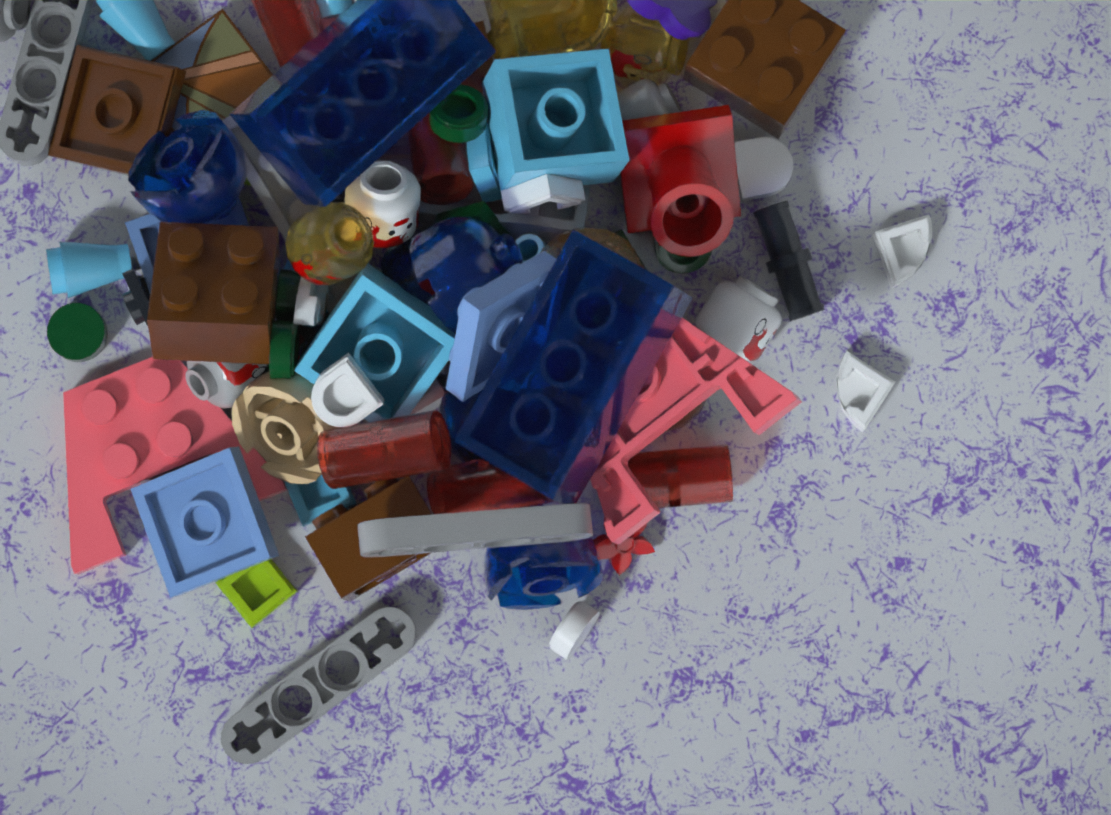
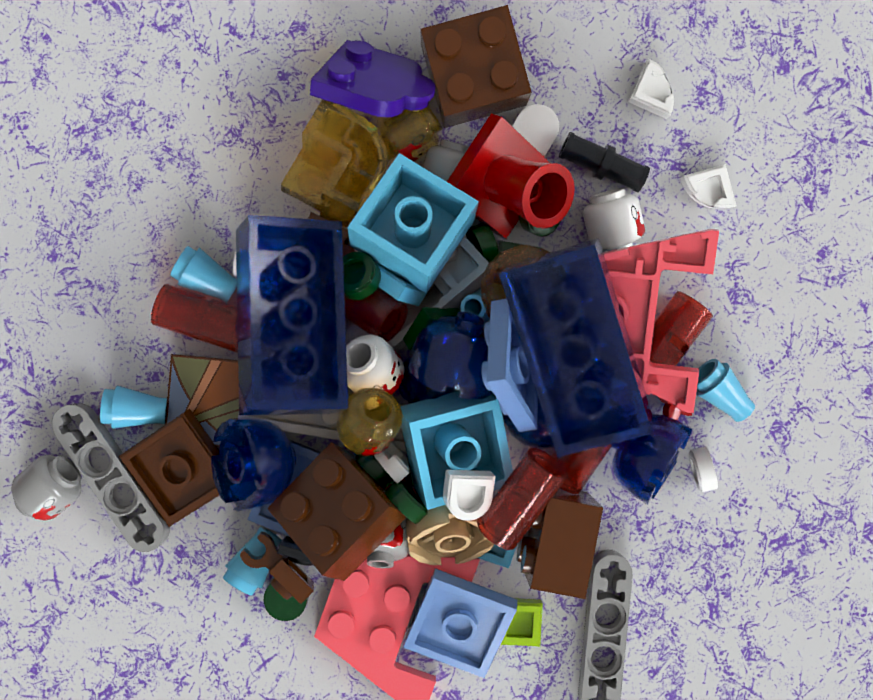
camera: 45 degrees left, 5 degrees up
(103, 309) = (287, 576): none -> reddish brown plate
(474, 530) = (618, 492): light grey beam -> none
(546, 188) = (449, 268): white tile -> none
(603, 208) = (483, 240): none -> dark green tile
(670, 579) = (723, 390): none -> medium azure cone

